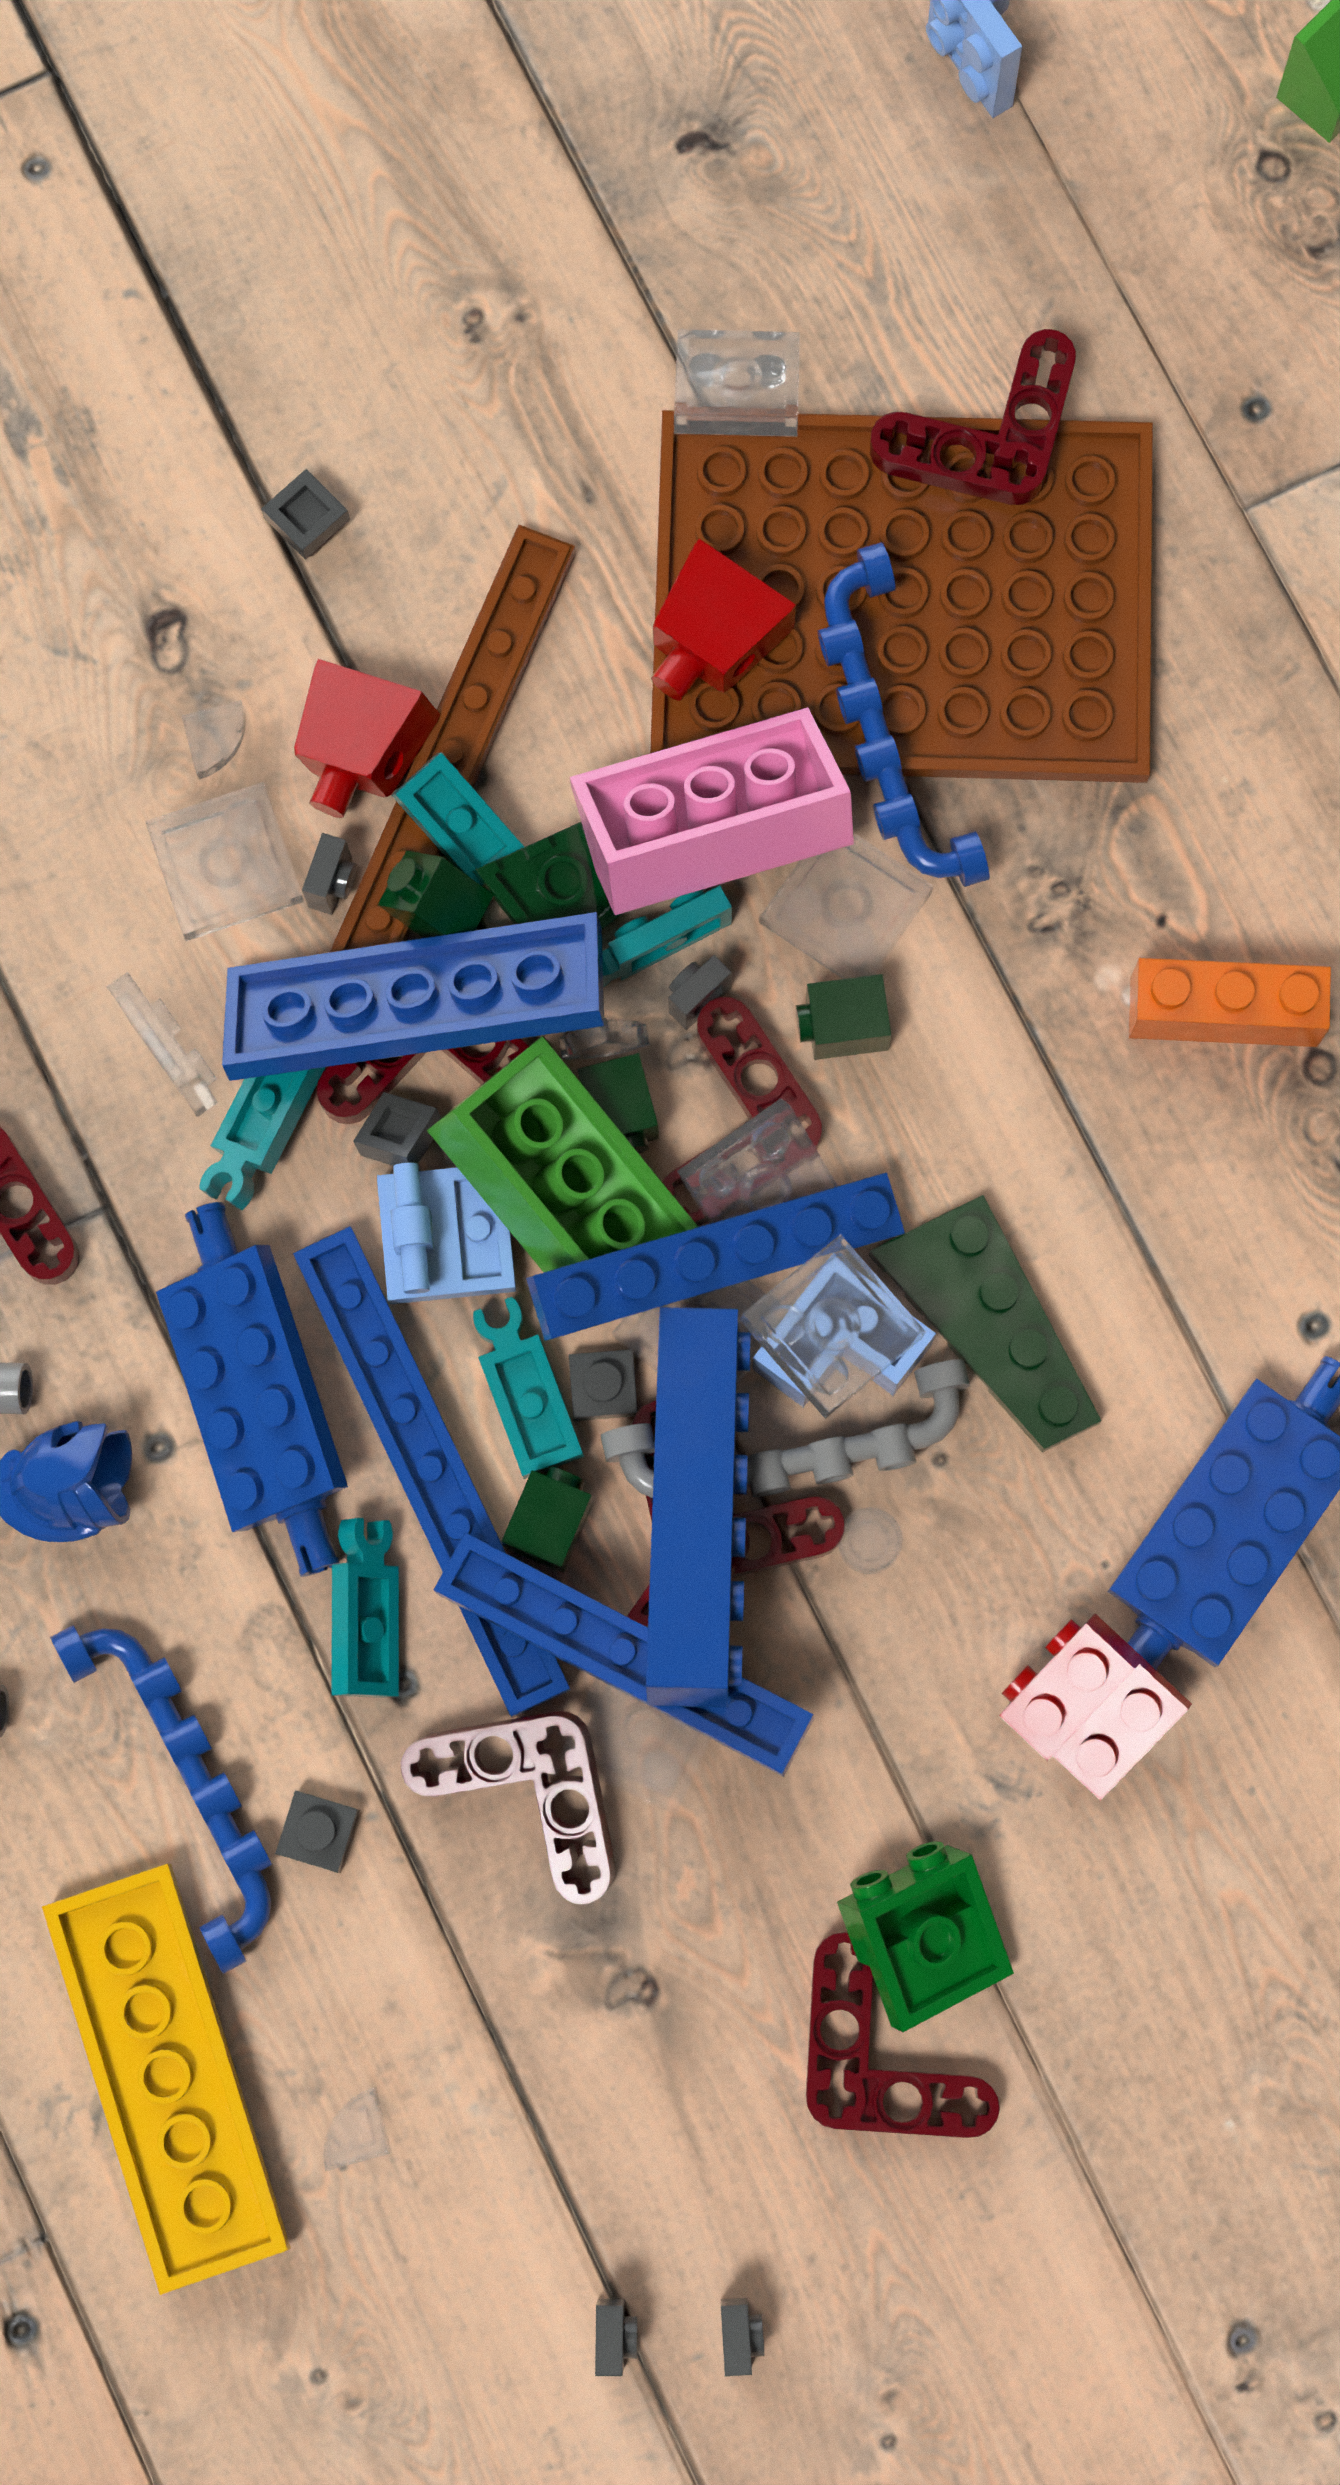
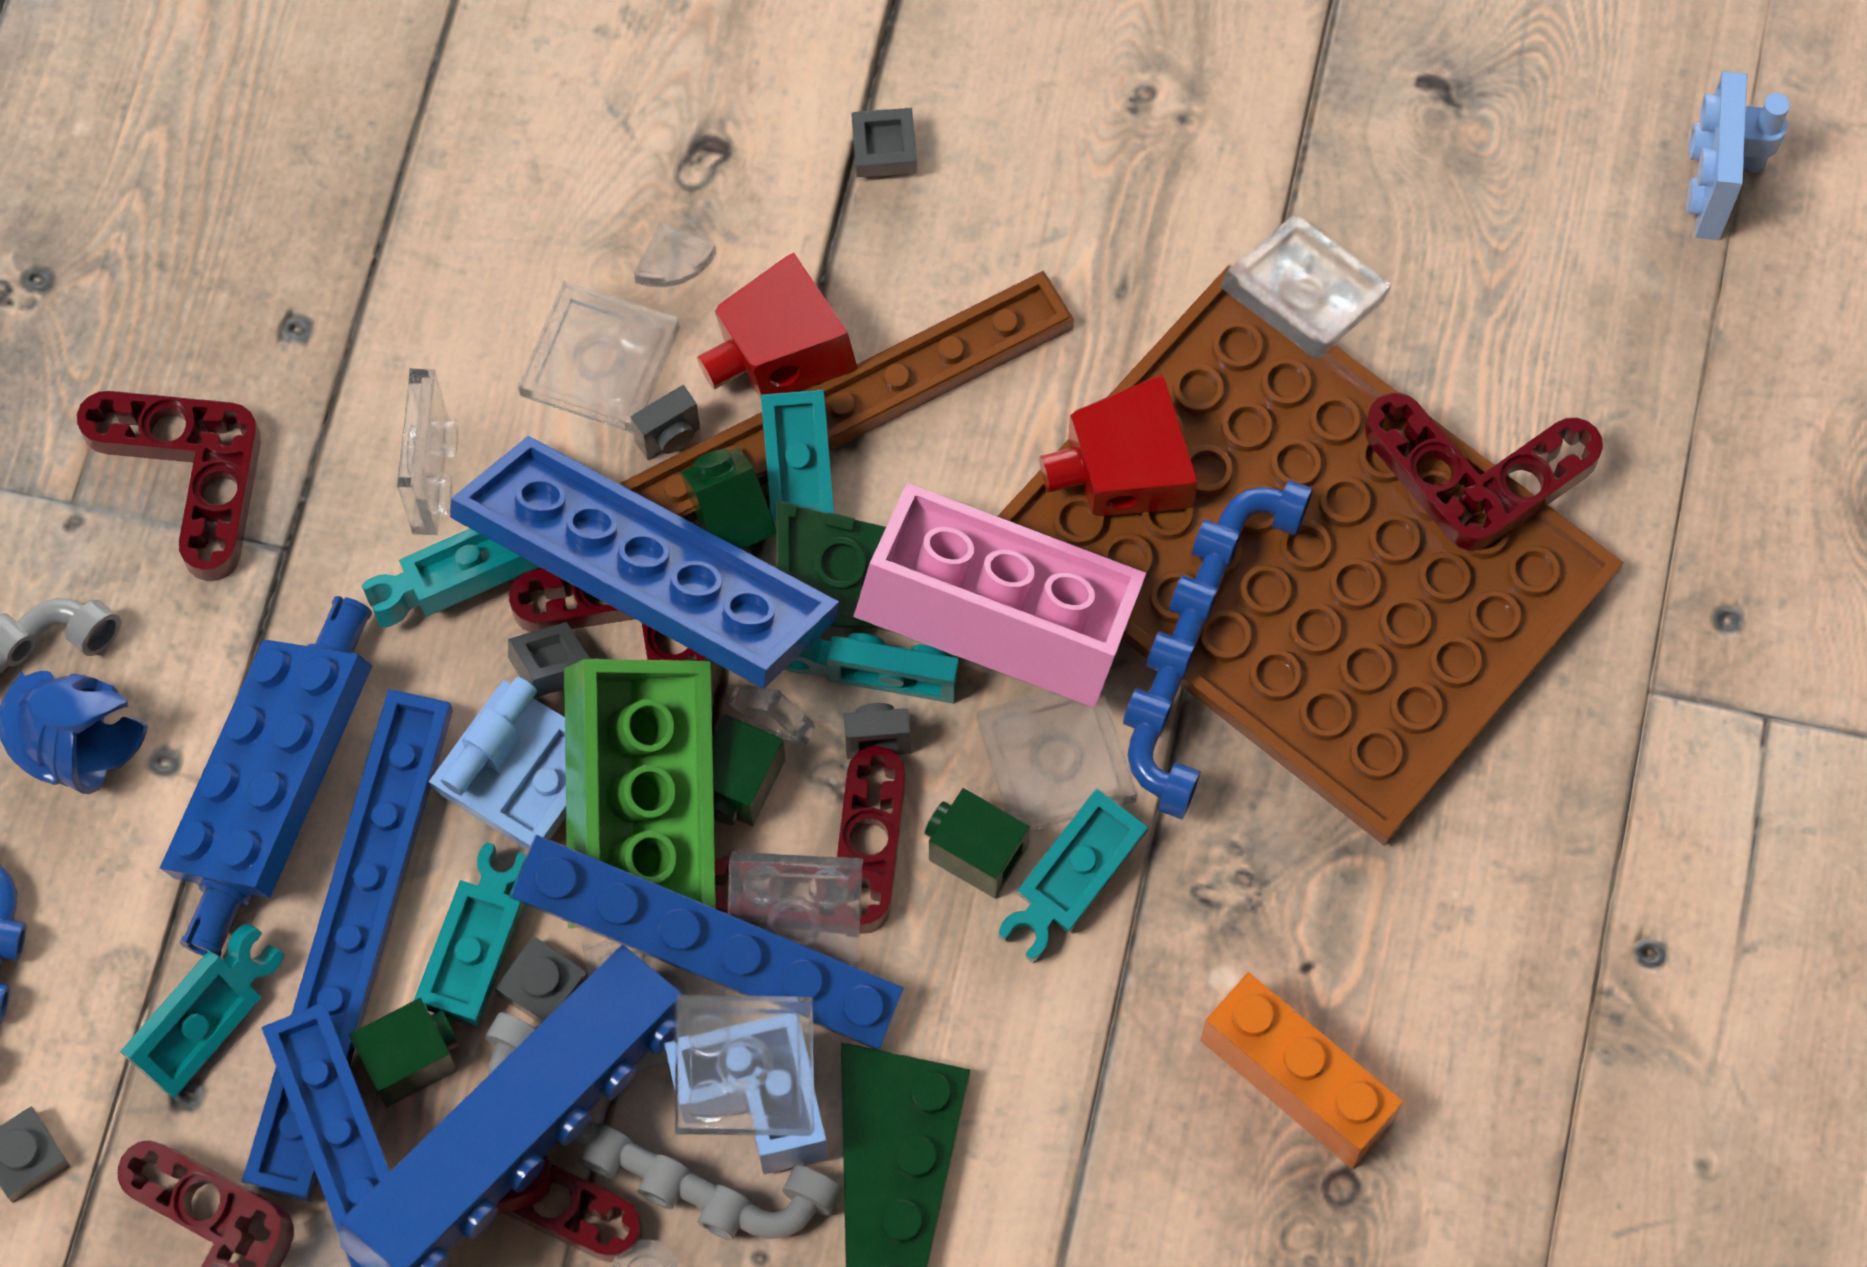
camera: 35 degrees right, 10 degrees down
(937, 981) = (1075, 870): none -> teal plate

